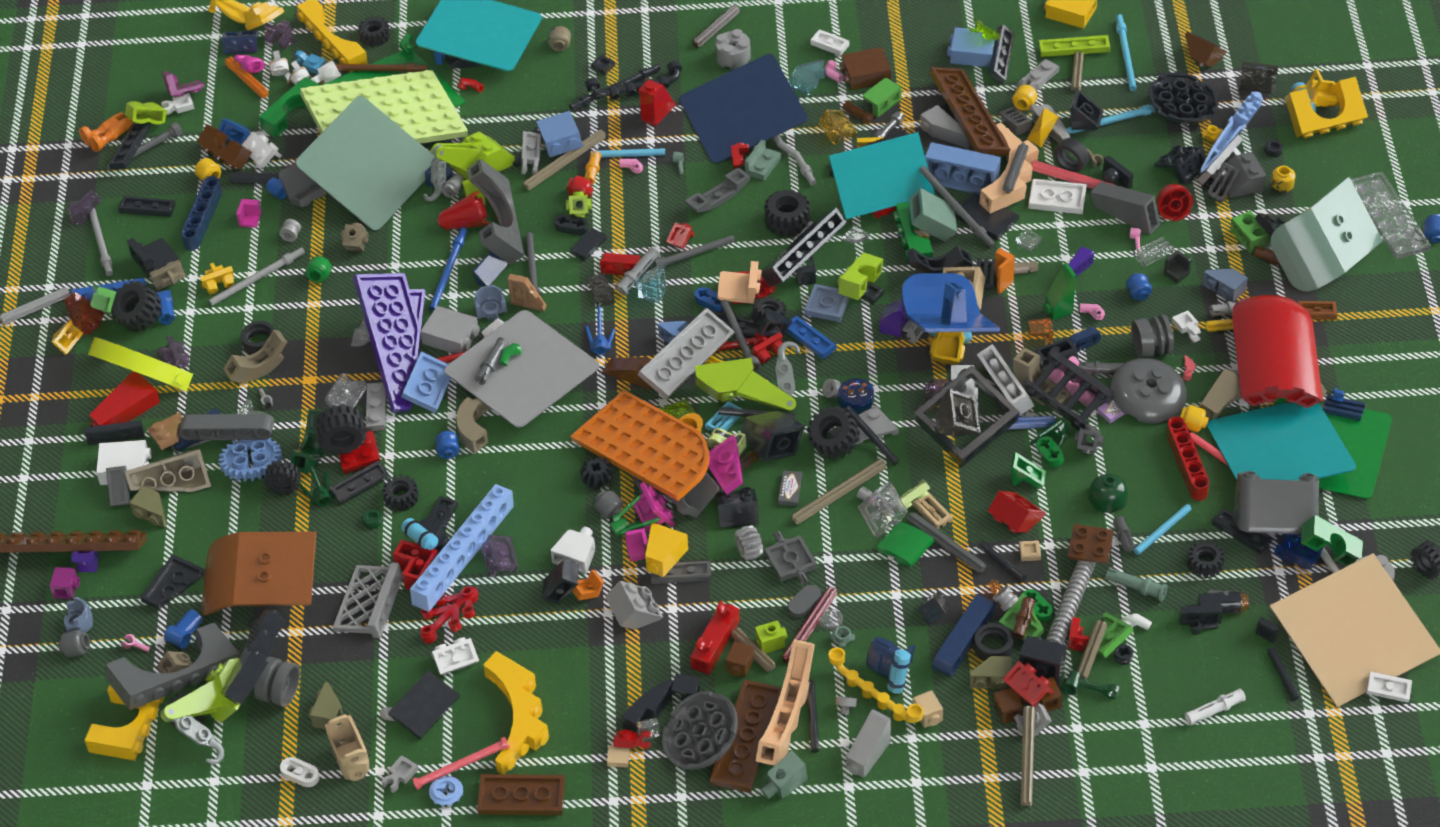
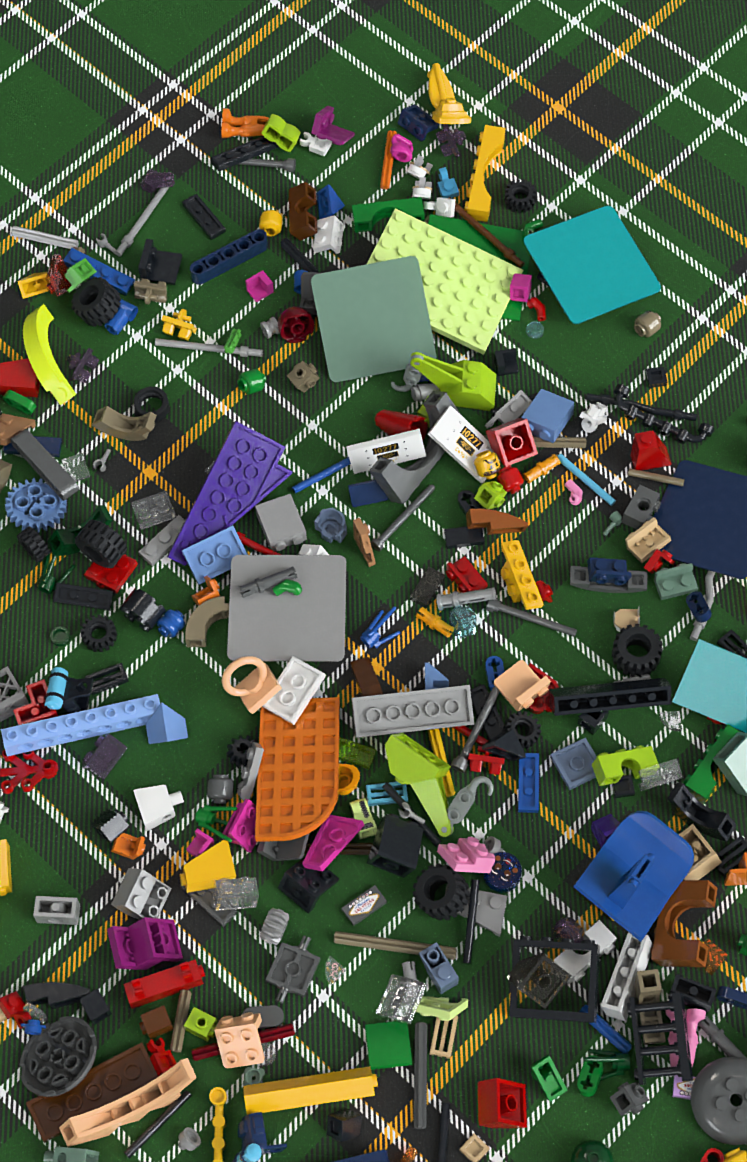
camera: 45 degrees right, 15 degrees up
(86, 275) = (104, 243): none -> light grey hand
(152, 411) = (19, 402): none -> green beam
(272, 257) = (232, 341): none -> bright green axle
(308, 212) = (295, 324): none -> dark red cylinder
(417, 450) = (142, 609): none -> black brick
(446, 78) = (520, 287): none -> dark pink panel
(451, 406) = (208, 592): none -> orange bracket
(467, 239) = (398, 447): none -> white tile
(485, 97) = (535, 330): none -> clear light blue plate
(487, 127) = (506, 362): none -> black panel
(522, 502) = (166, 725): none -> medium blue slope
(526, 187) = (459, 440): none -> white tile
(555, 187) = (487, 464): none -> yellow head
(556, 161) = (512, 441): none -> red slope
(560, 424) = (256, 687): none -> light nougat tile
(587, 659) = (56, 910): none -> light grey brick
(589, 407) = (298, 686): none -> white tile
(592, 113) = (593, 417): none -> white hips
(601, 216) = (495, 521): none -> dark orange slope
(619, 473) = (250, 772): none -> light grey hinge
(632, 302) = (435, 622): none -> light orange pin
(658, 234) = (519, 576): none -> yellow bracket
(659, 734) = (33, 1027): none -> blue plate
(673, 625) = (144, 943): none -> magenta bracket
(675, 116) = (656, 477): none -> dark tan bar
(688, 138) = (645, 499): none -> dark grey brick
(699, 547) = (235, 893): none -> clear brick
(713, 184) = (608, 571): none -> dark blue bracket
(716, 151) = (646, 540): none -> tan bracket
(755, 410) = (408, 813): none -> light grey hand
(756, 203) = (626, 617): none -> tan piece
(767, 677) = (161, 1059): none -> red plate
(799, 160) = (701, 605): none -> dark blue beam
(809, 619) = (239, 1040): none -> light nougat bracket
(816, 538) = (333, 970): none -> clear tile
(826, 397) = (467, 856): none -> bright pink plate
(883, 472) = (439, 968): none -> sand blue slope
(888, 263) = (660, 774): none -> clear bracket
(888, 606) = (310, 1090): none -> yellow brick
(1025, 335) = (682, 953): none -> dark orange arch

